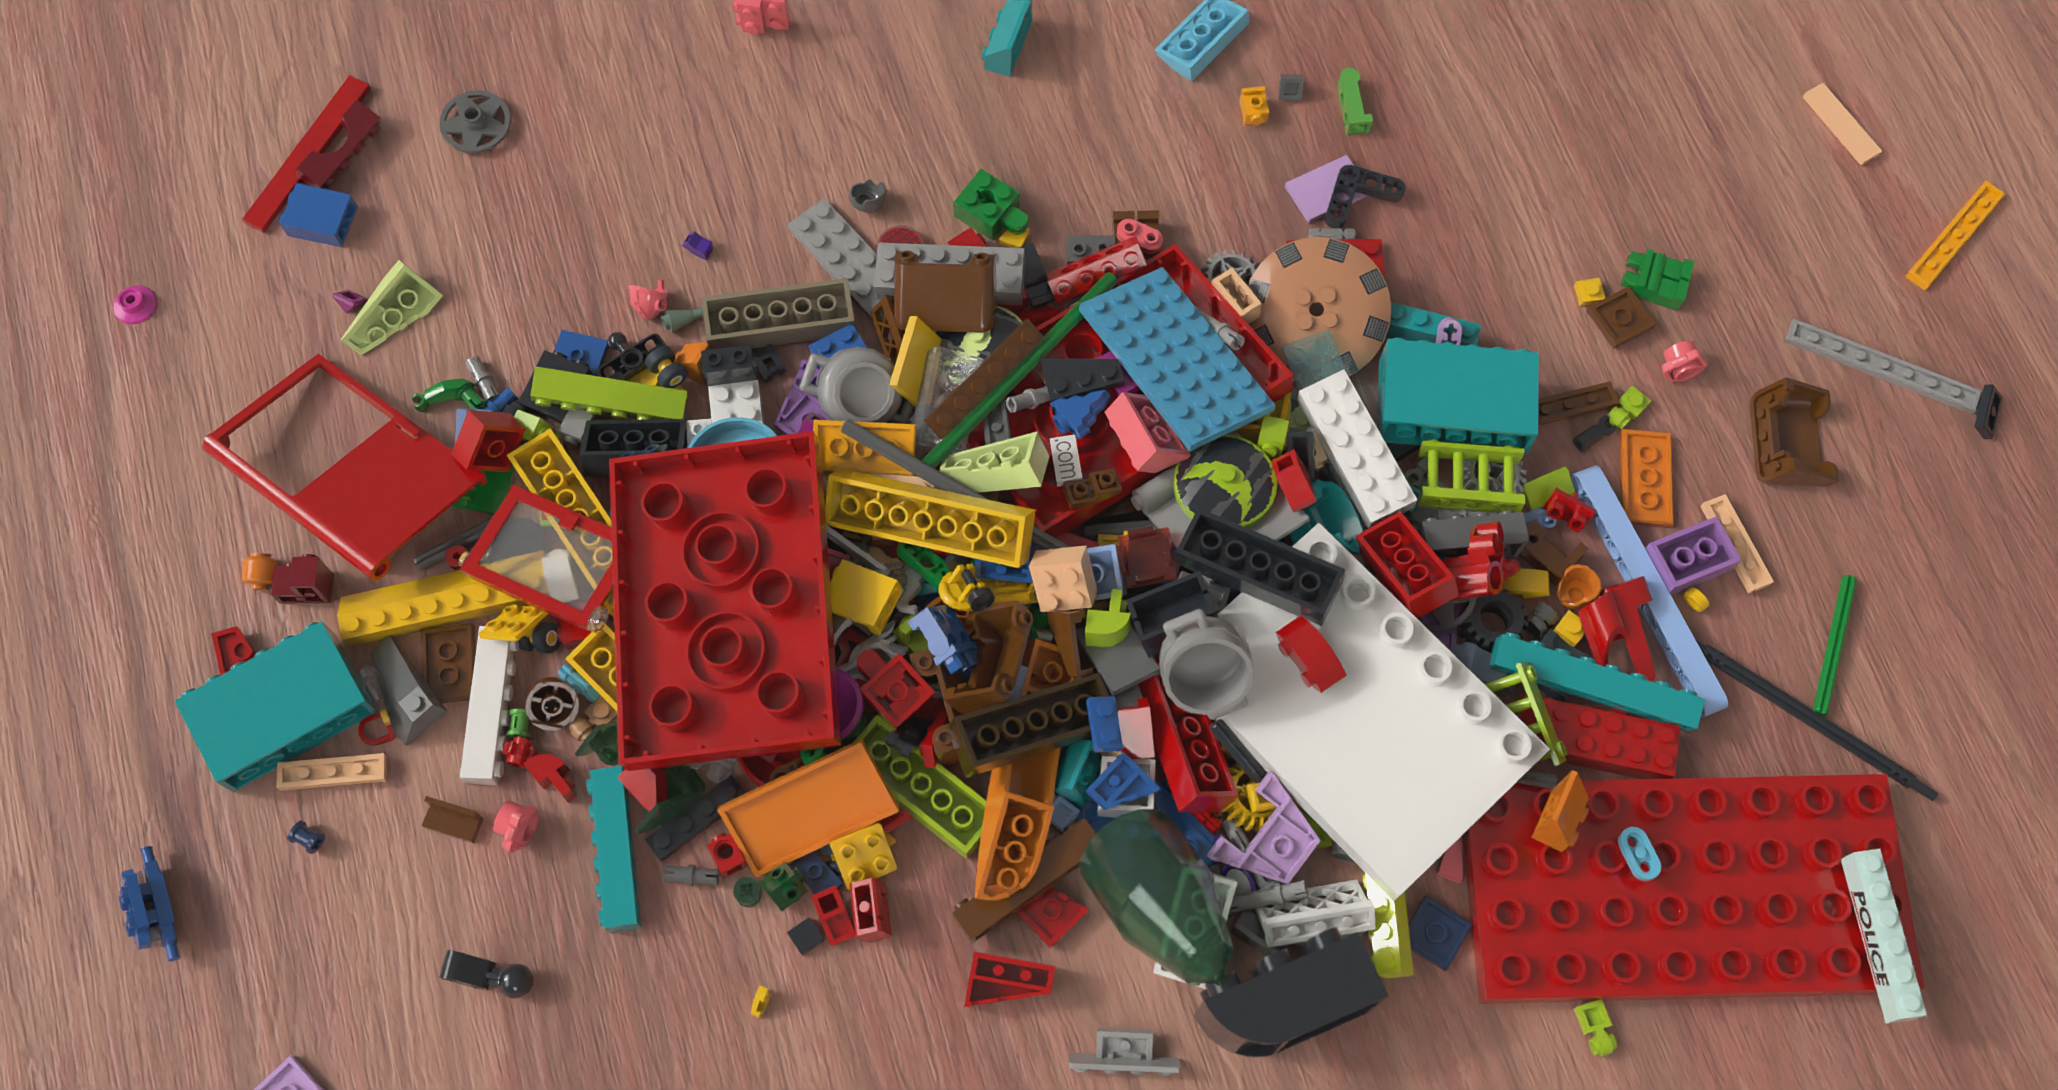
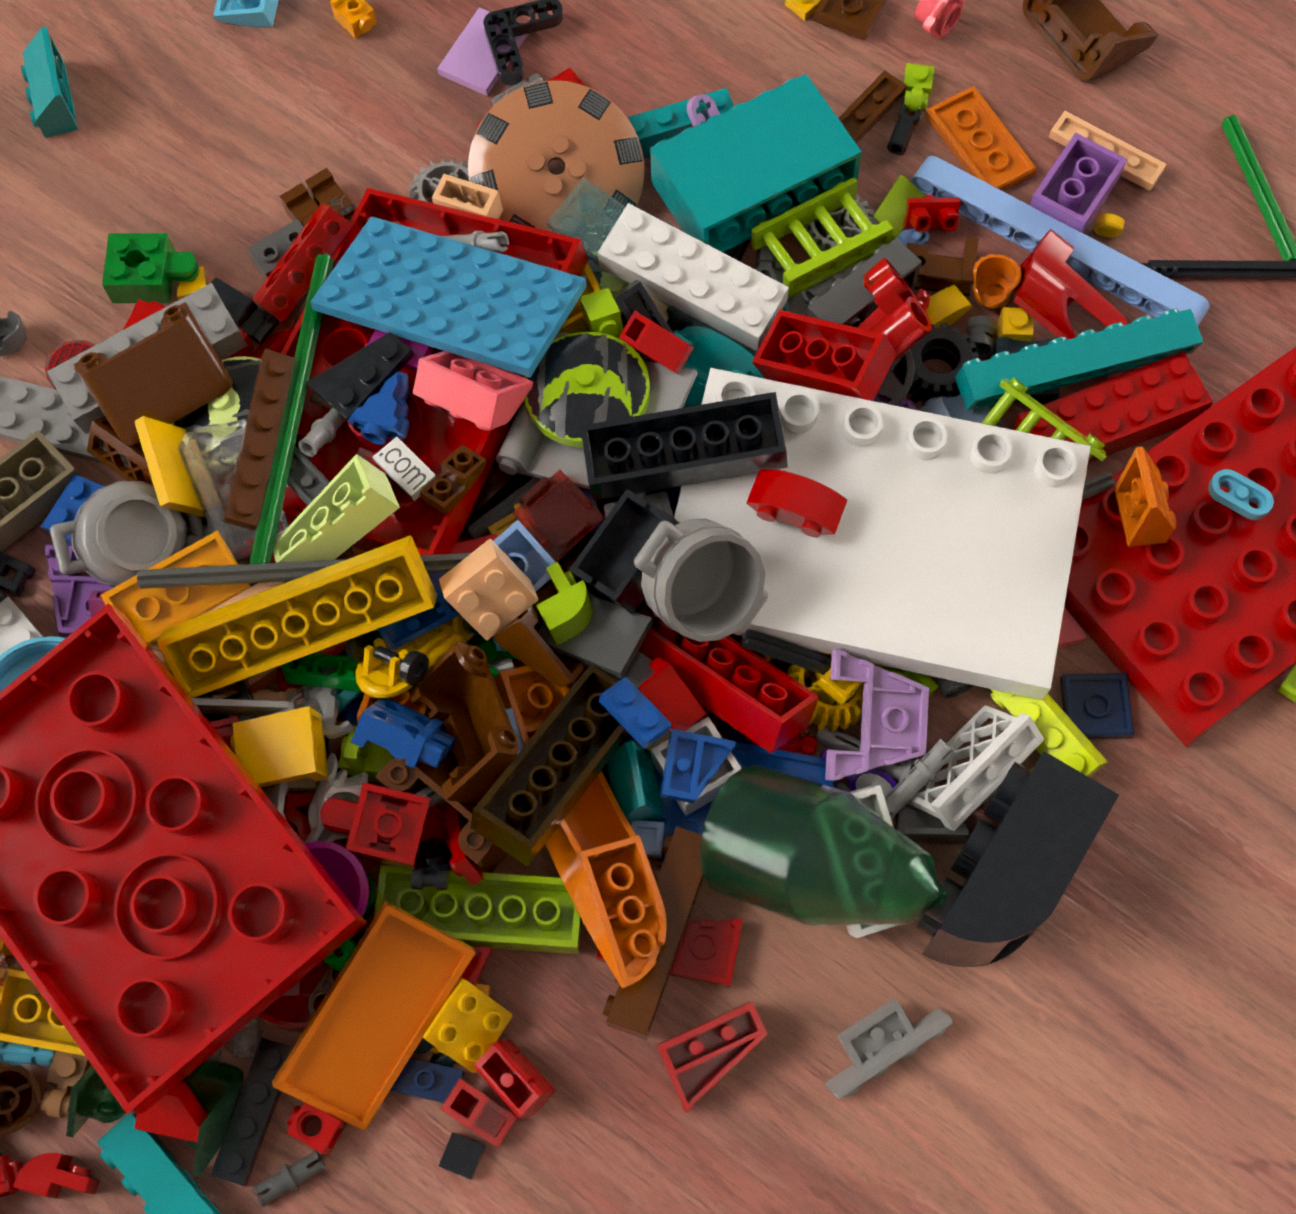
camera: 30 degrees left, 0 degrees up
(751, 896) = (372, 1155): clear green wheel -> none
(784, 885) = (402, 1118): dark green brick -> none
(1142, 232) = (326, 196): coral plate -> none

